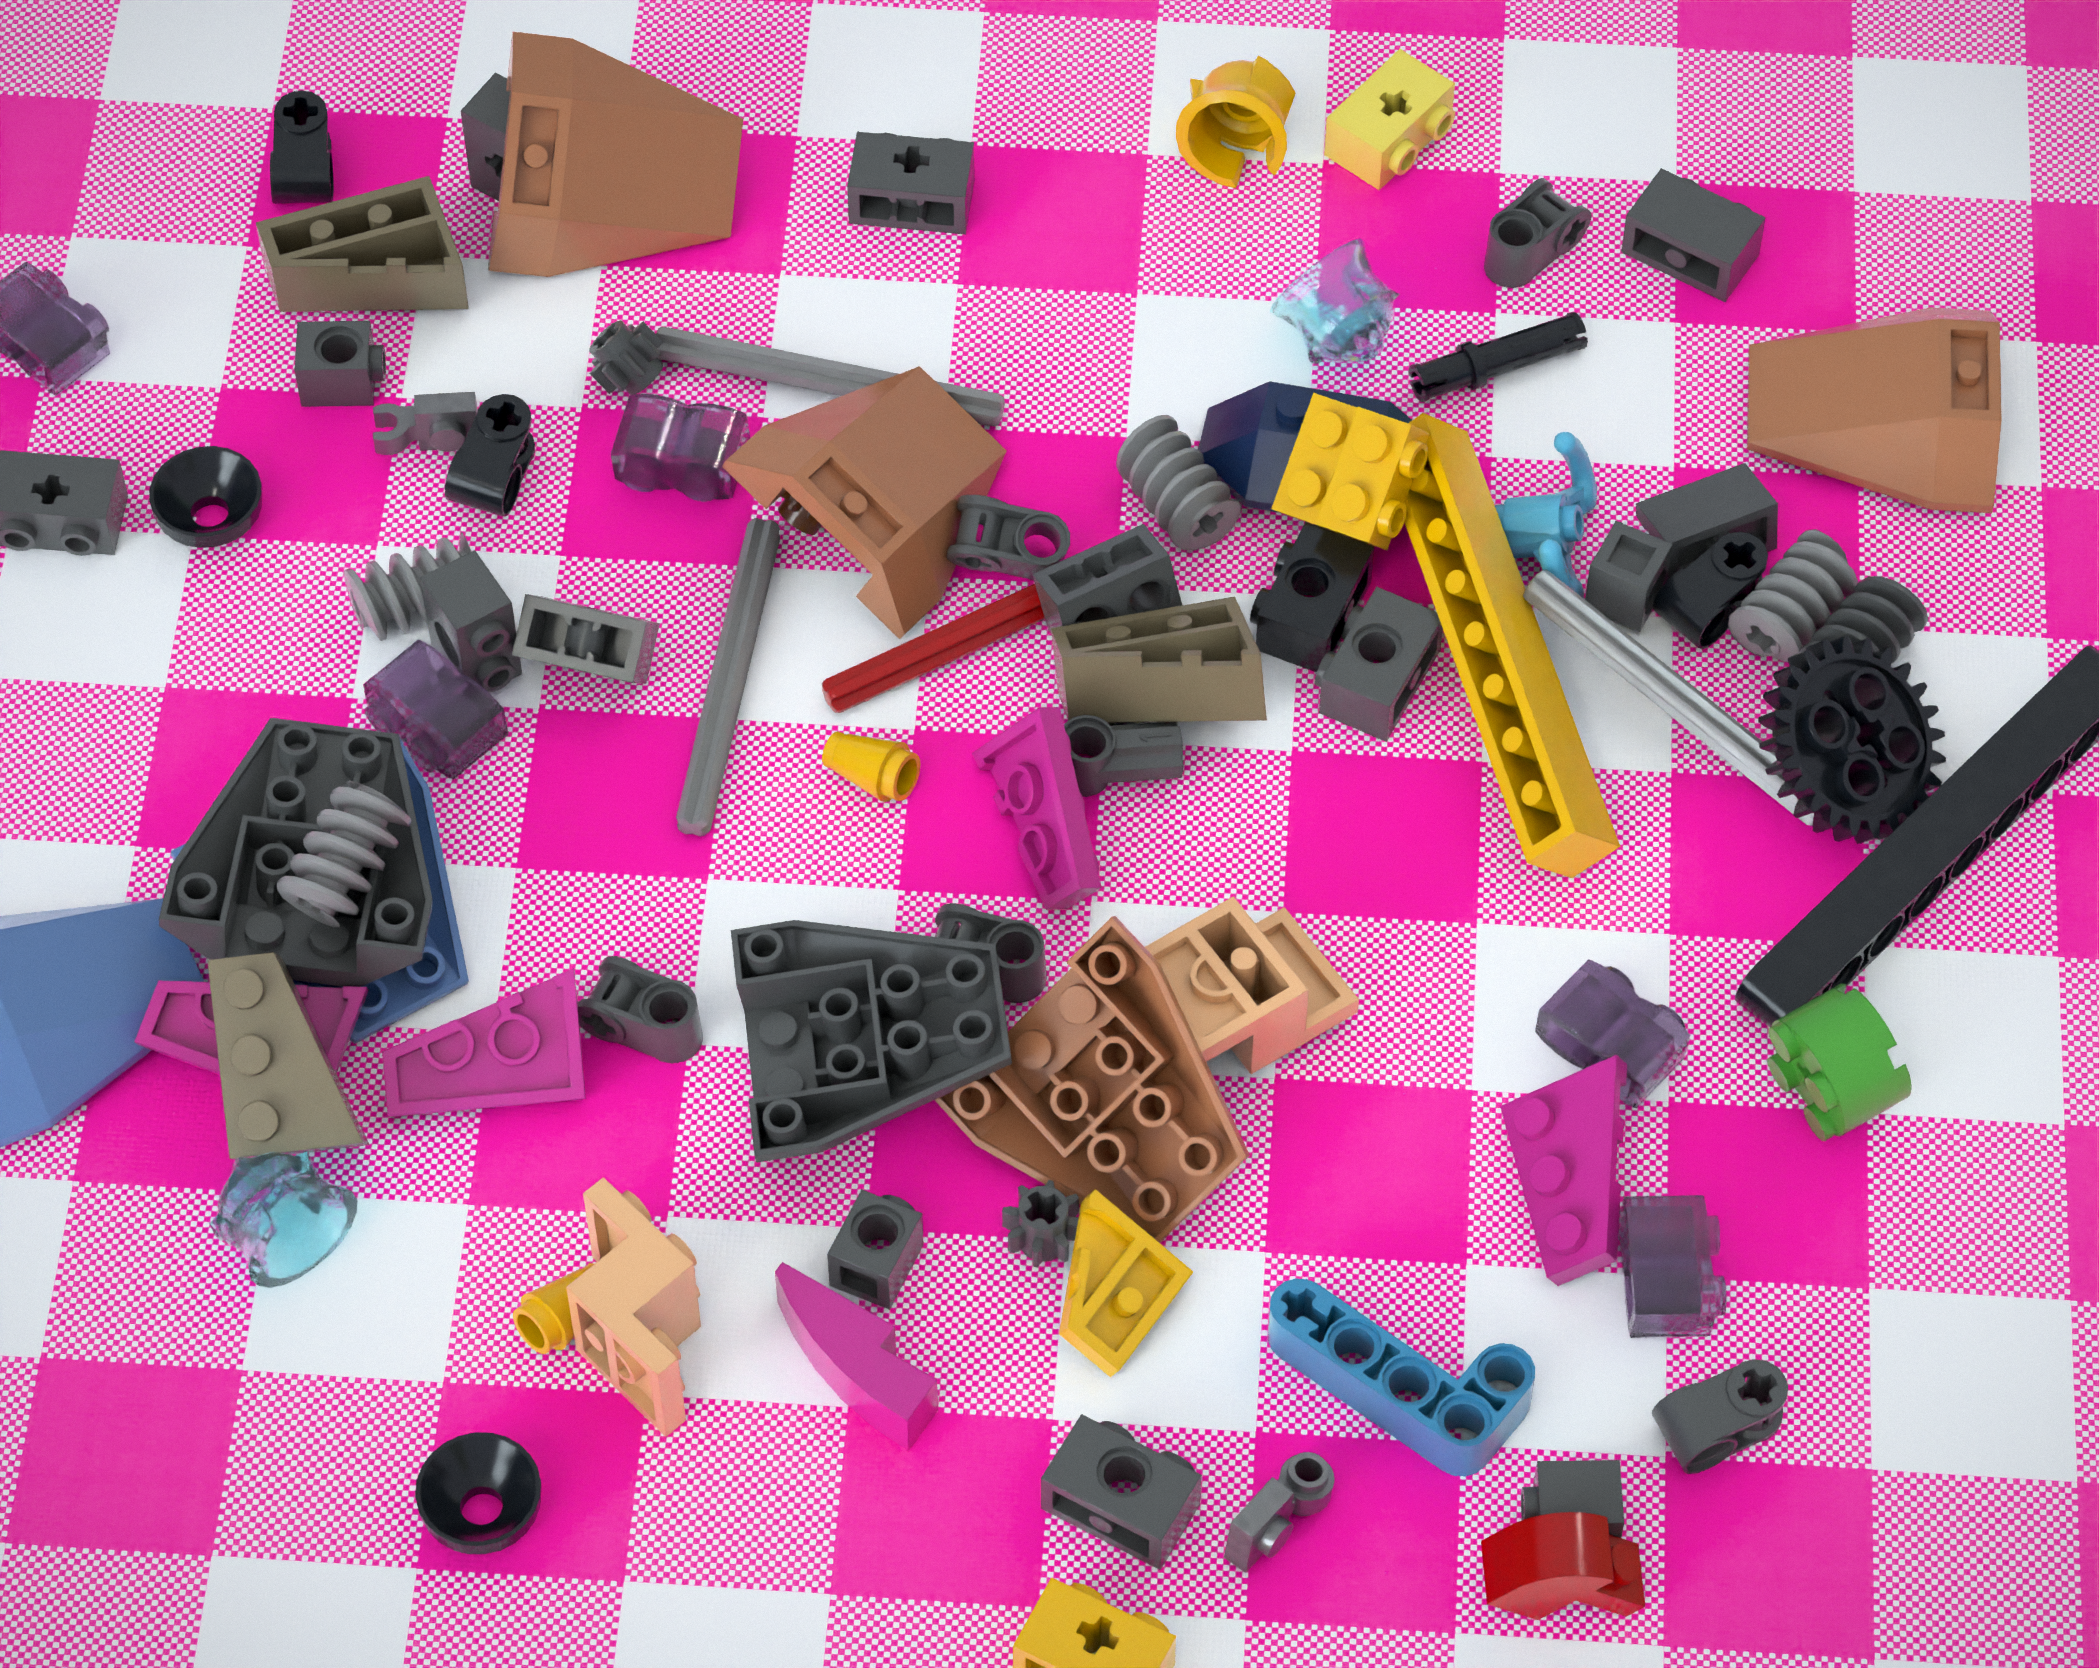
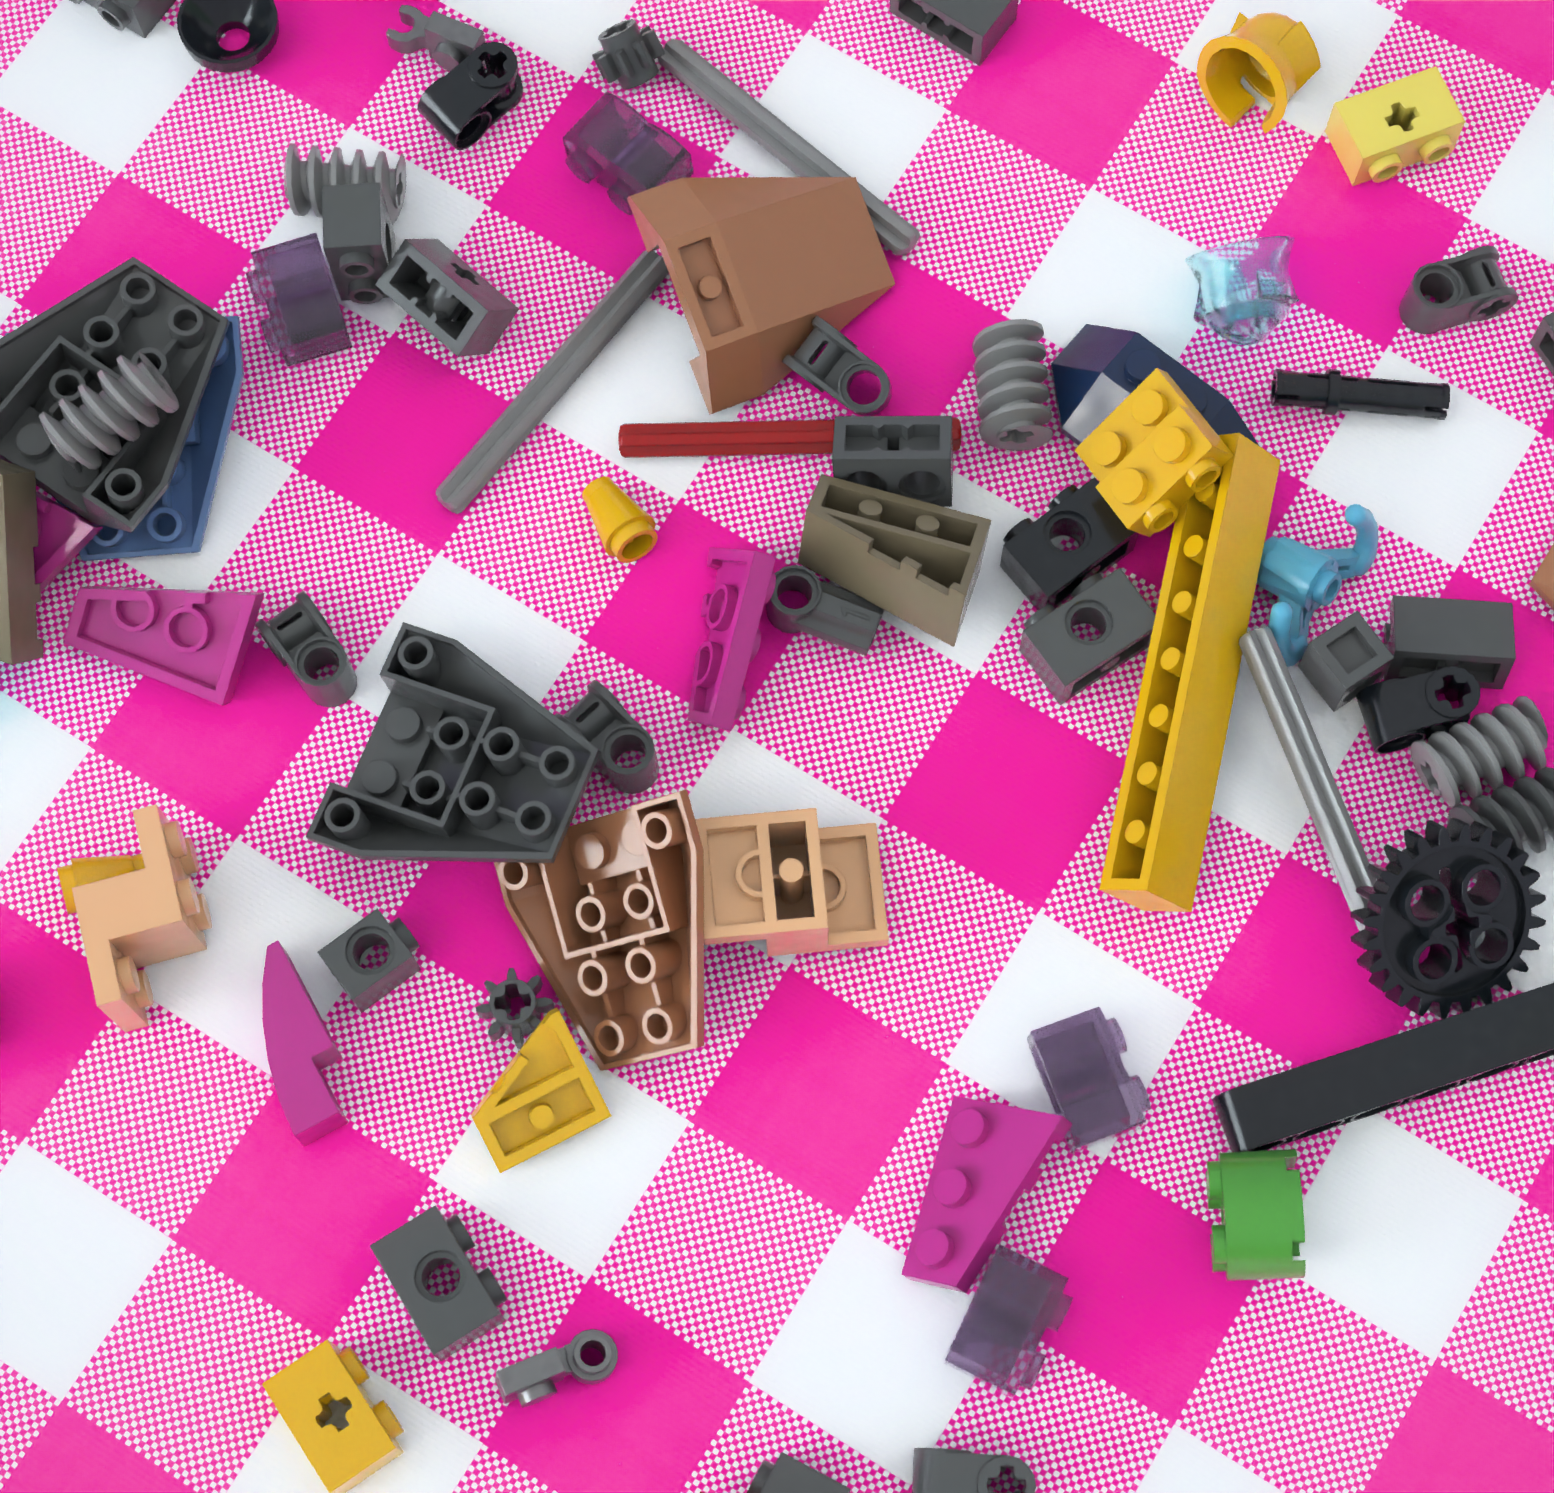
camera: 30 degrees right, 15 degrees up
(1316, 1327) = (718, 1291): dark azure beam -> none

